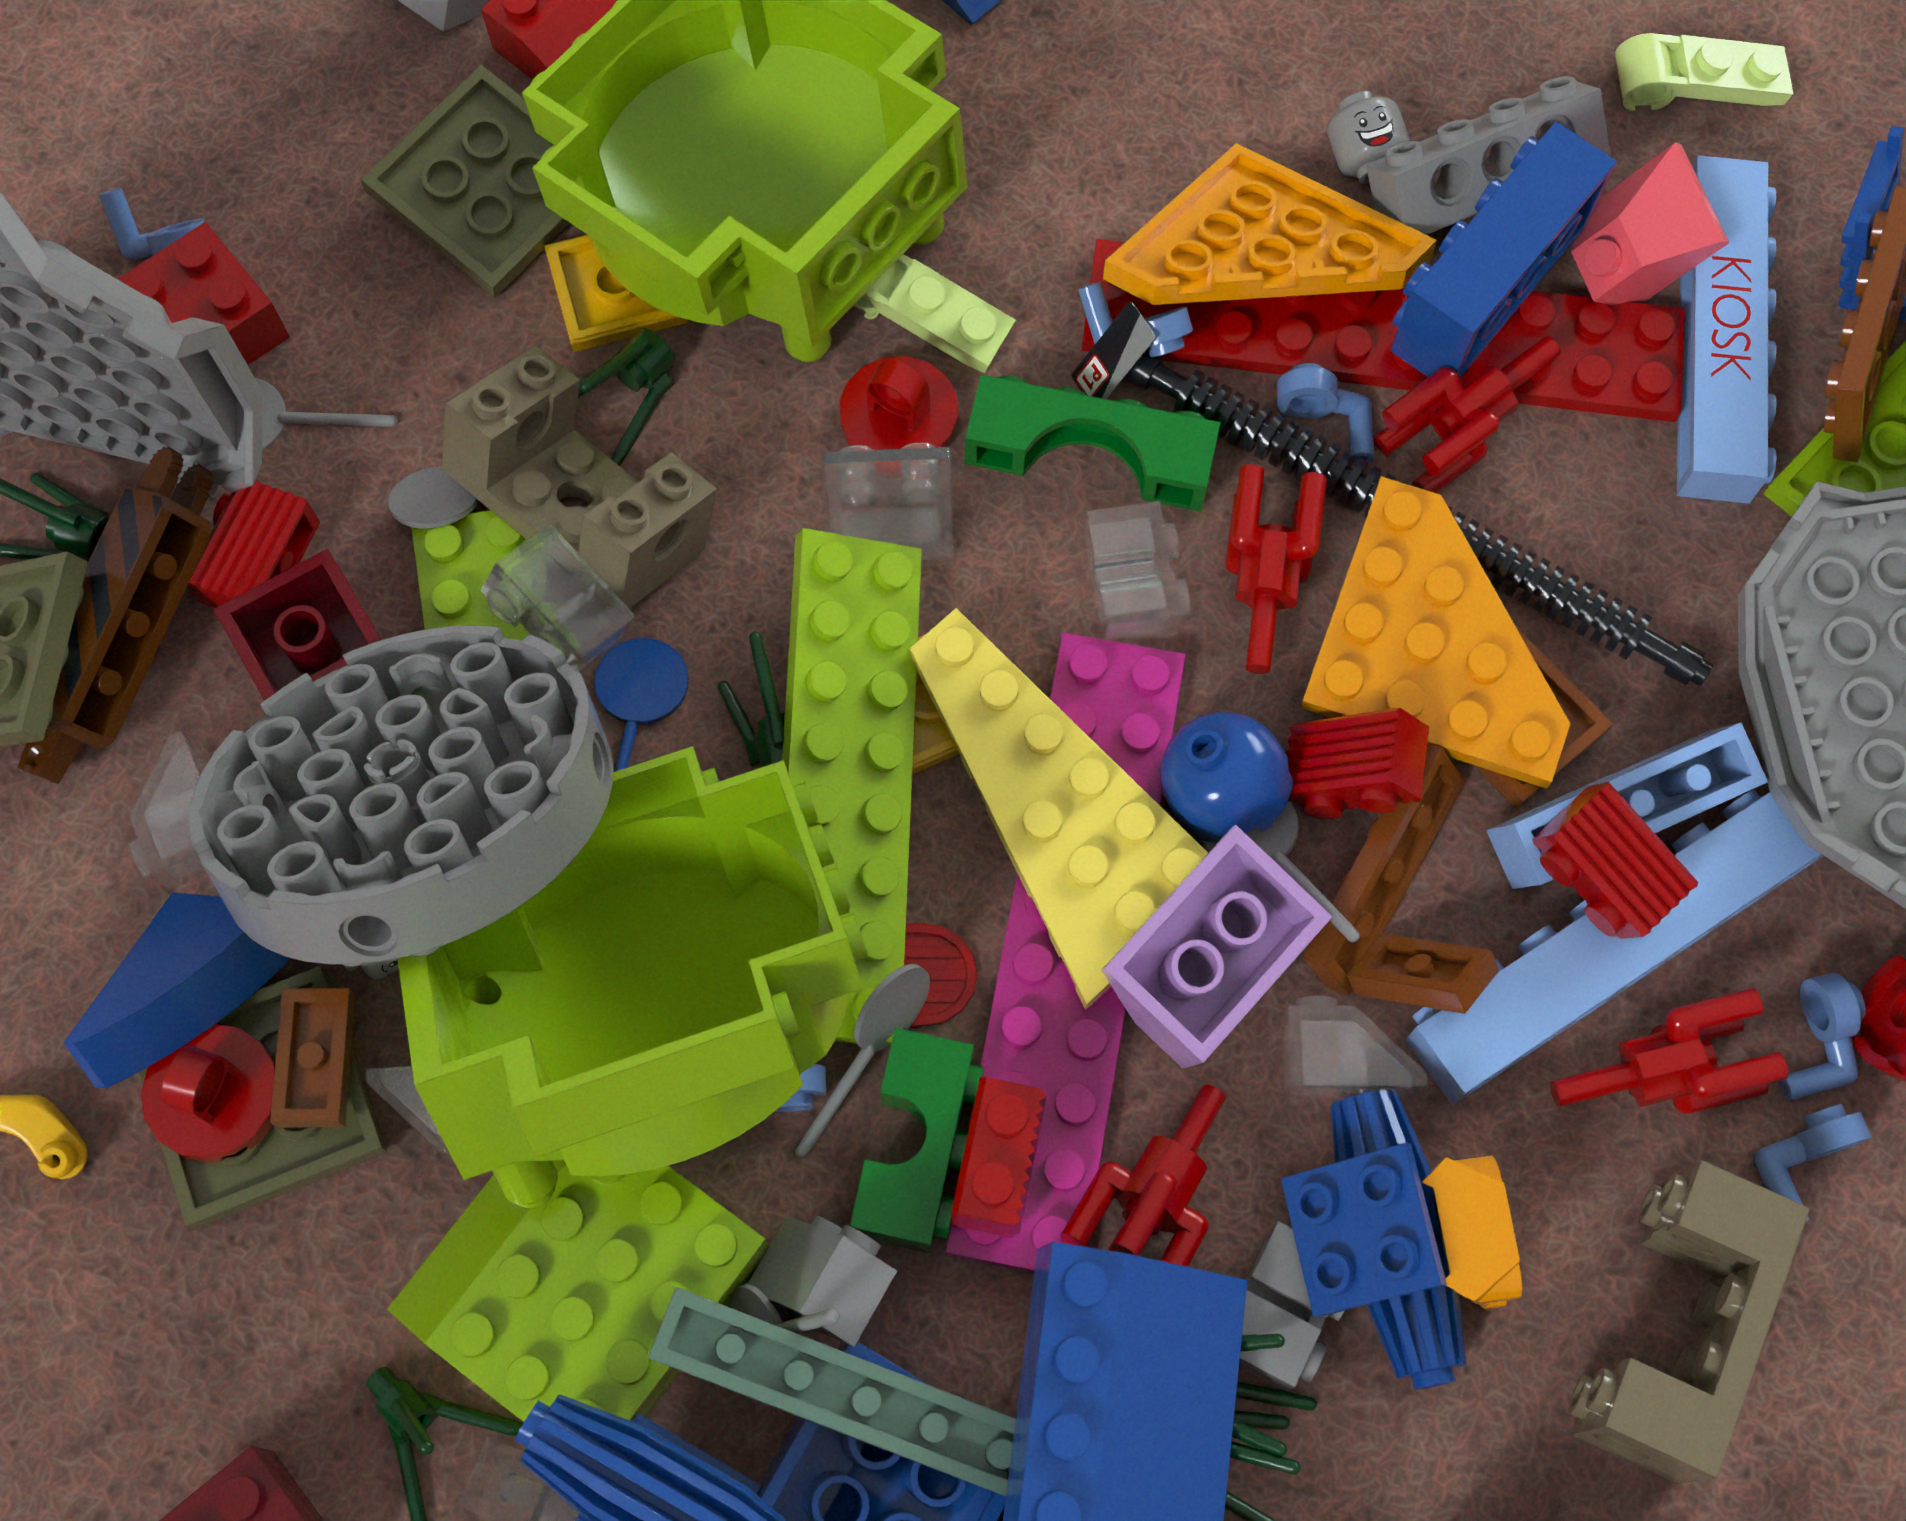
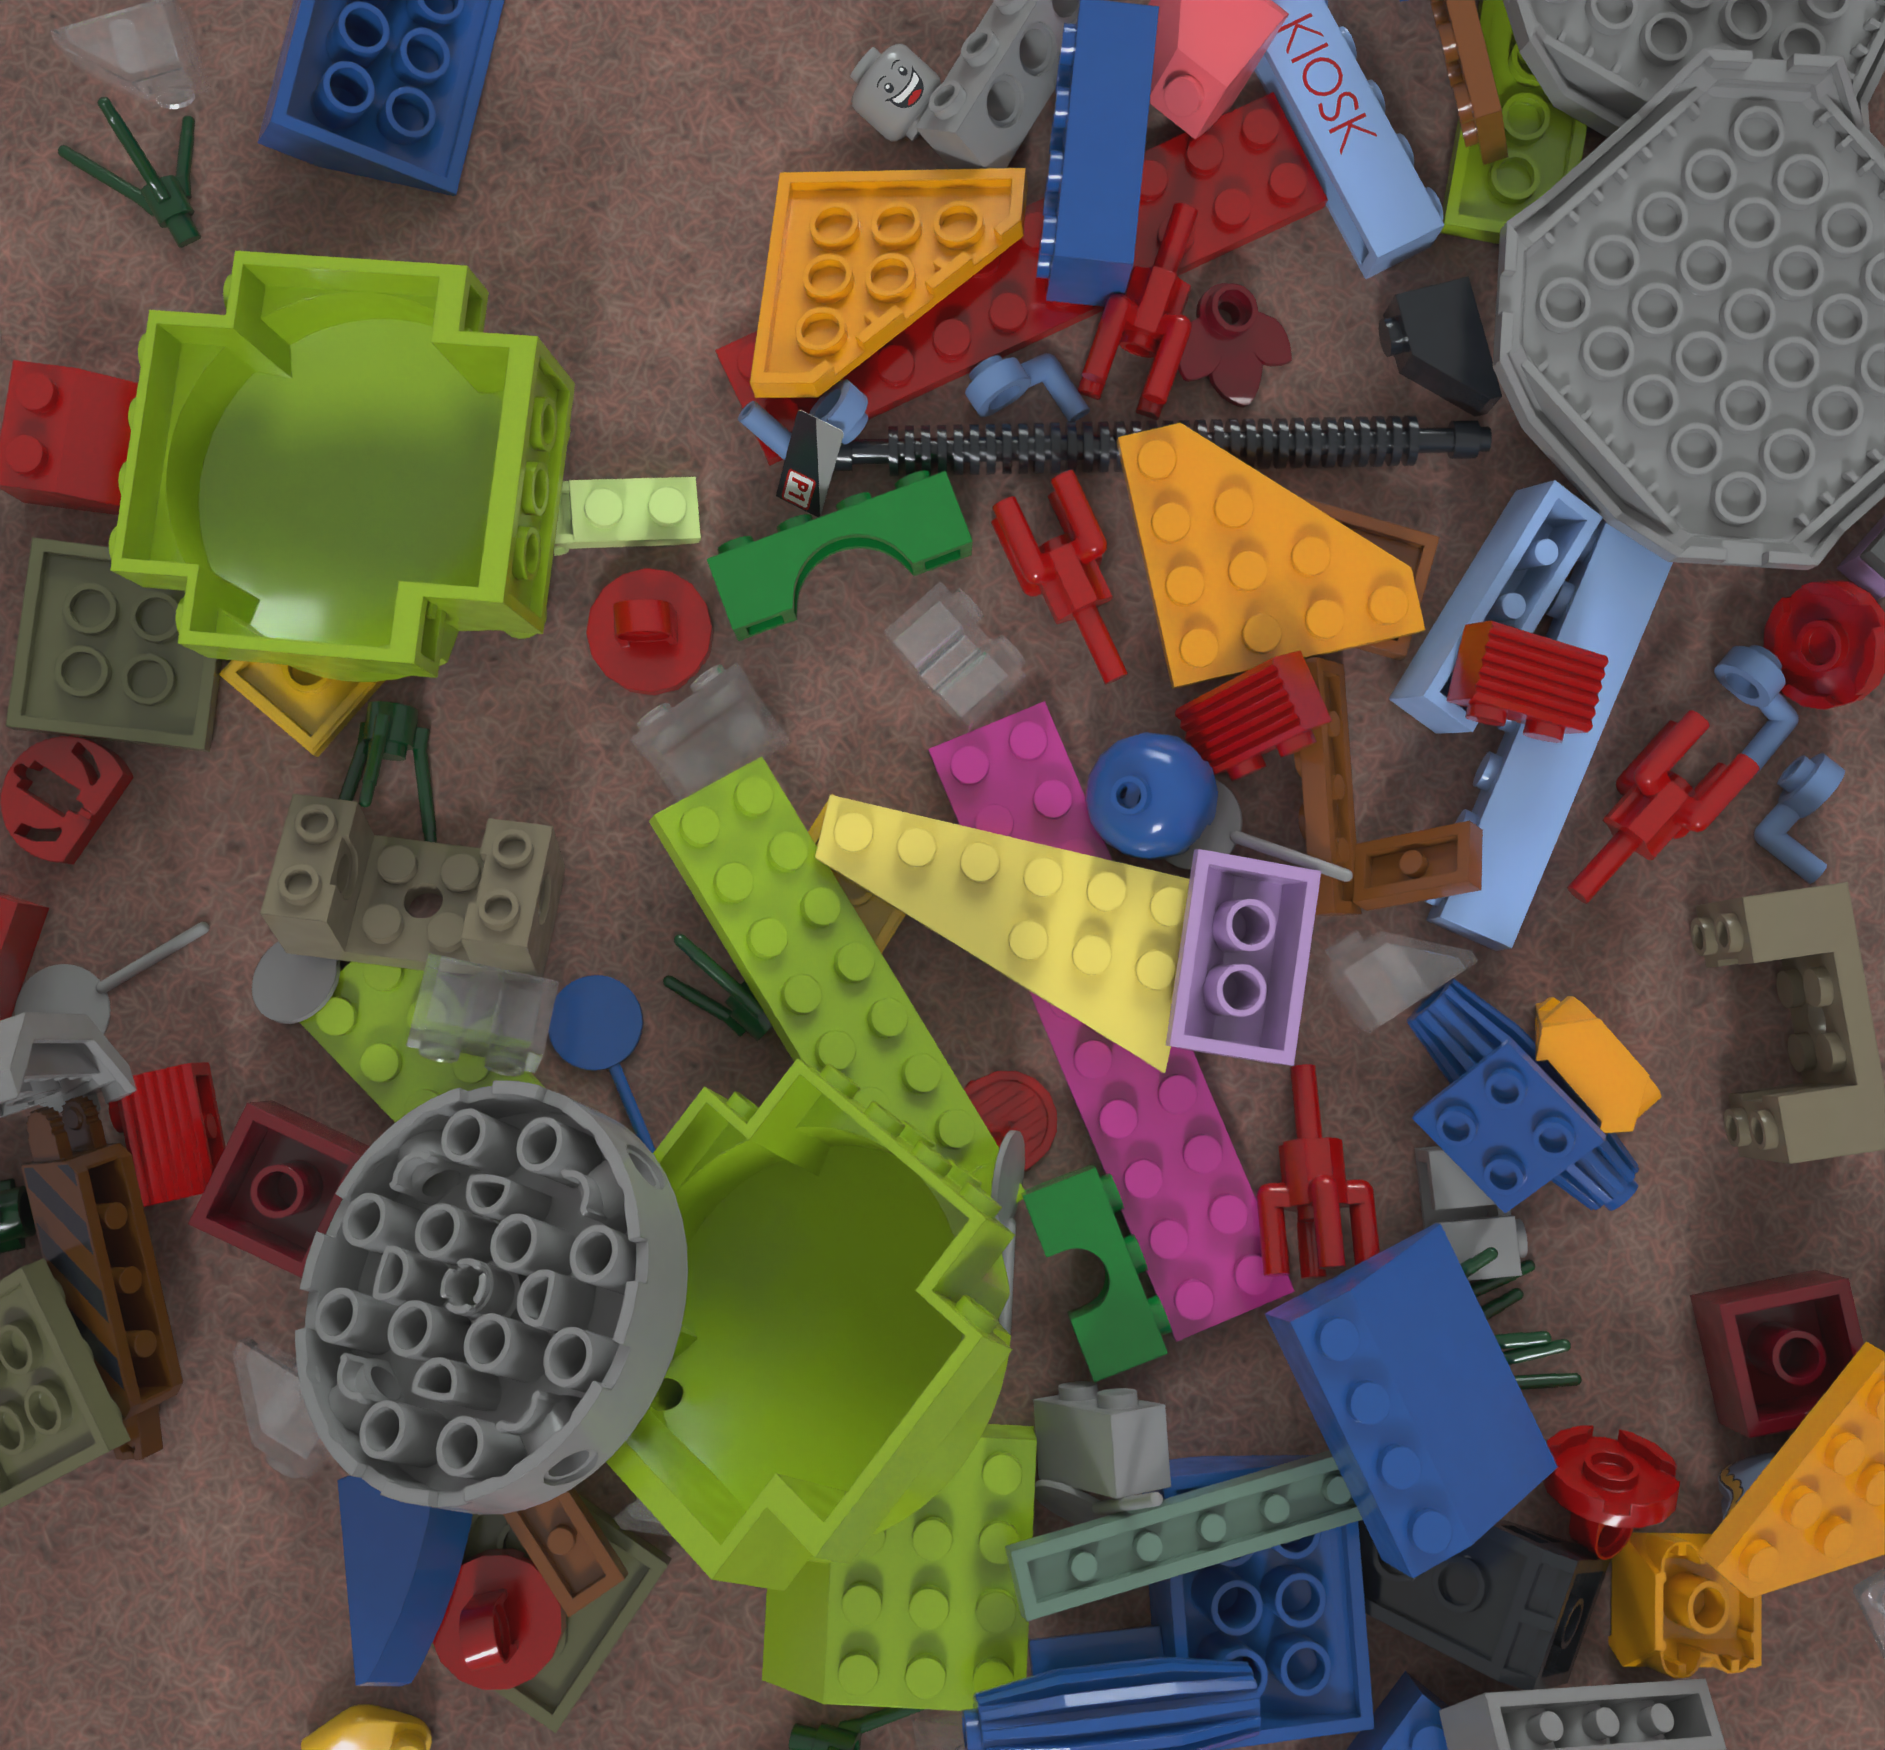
camera: 35 degrees left, 15 degrees up
(352, 289) = (63, 757): none -> red piece
(998, 1157) = (1179, 1252): red brick -> none
(1522, 481) = (1233, 352): none -> dark red plate
(1704, 572) = (1442, 344): none -> black slope

